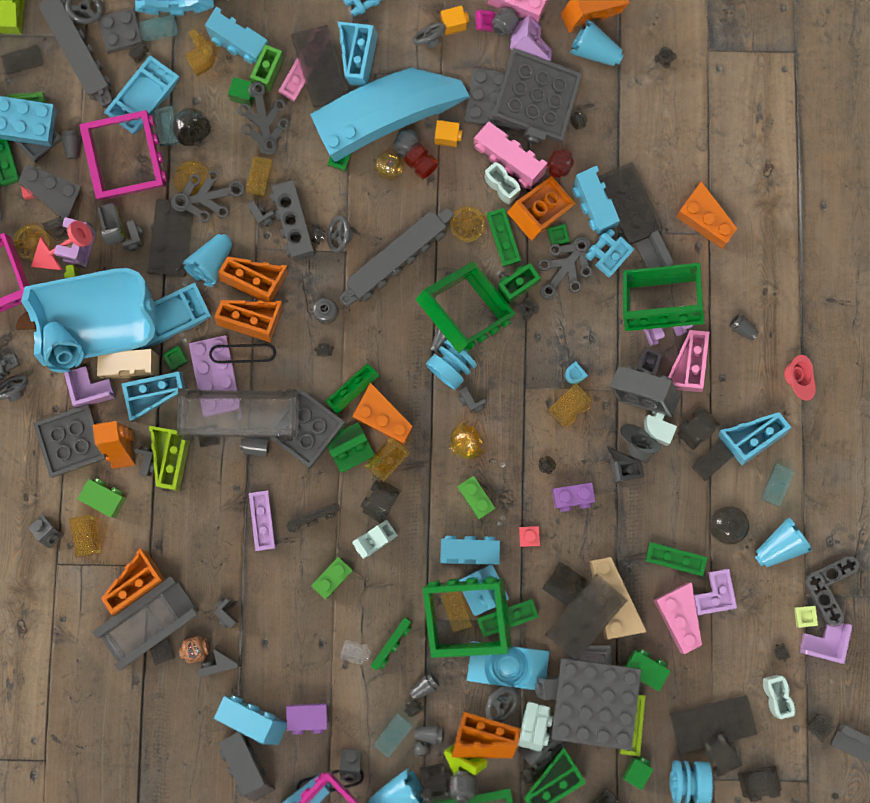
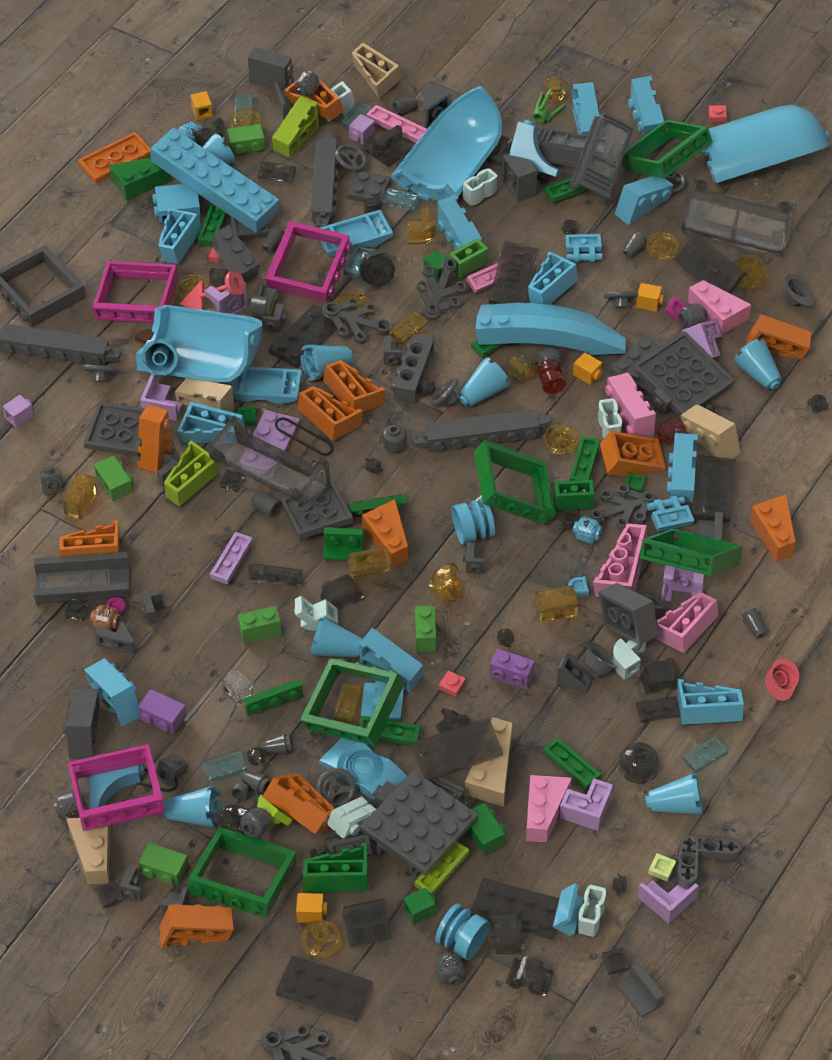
camera: 30 degrees right, 30 degrees down
(193, 628) = (118, 603): none -> dark pink tile
(367, 206) = (483, 383): none -> medium azure cone
(408, 558) = (334, 641): none -> medium azure cone
(551, 312) = (587, 530): none -> medium azure head
(595, 144) = (713, 431): none -> tan wedge
(605, 336) = (623, 561): none -> bright pink wedge
(757, 706) = (568, 910): none -> medium azure panel

